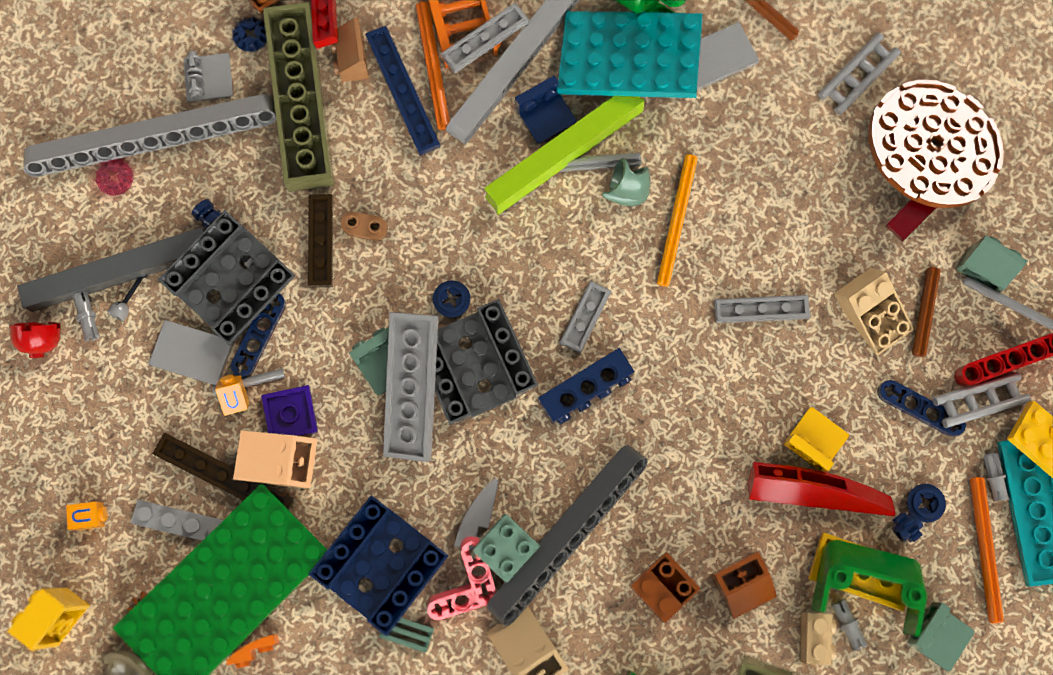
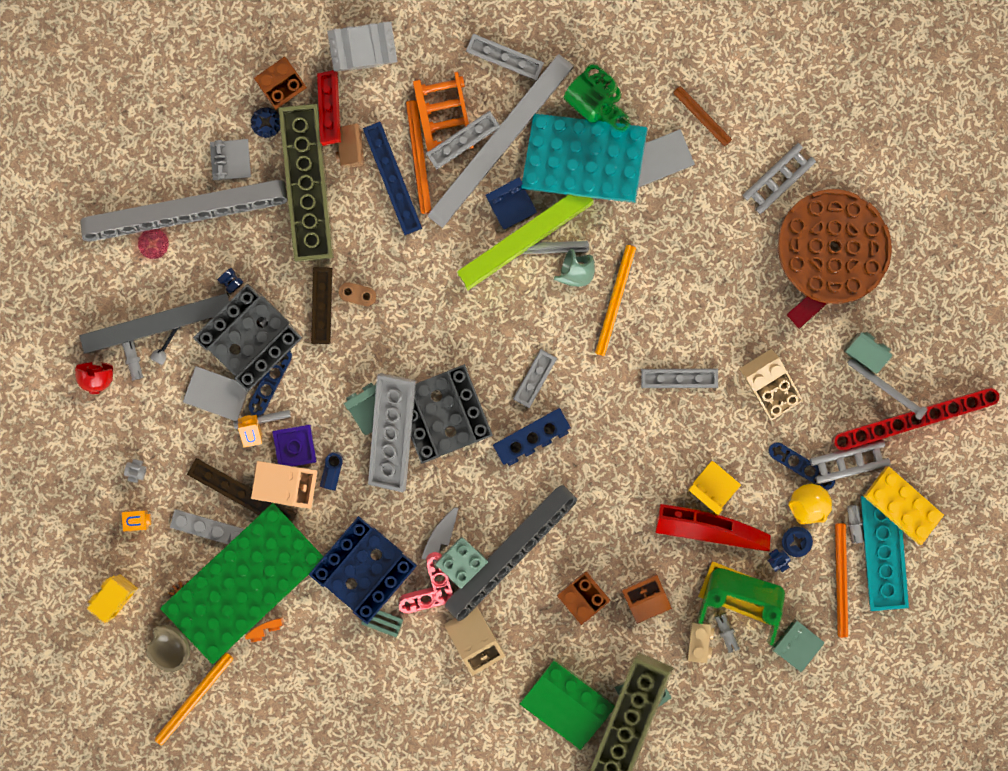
camera: 10 degrees right, 10 degrees up
(86, 452) = (135, 471): none -> light grey gear
(336, 443) = (331, 472): none -> dark blue piece
(456, 289) = (430, 350): dark blue gear -> none
(926, 312) = (814, 386): dark orange axle -> none
(940, 454) = (810, 504): none -> yellow helmet

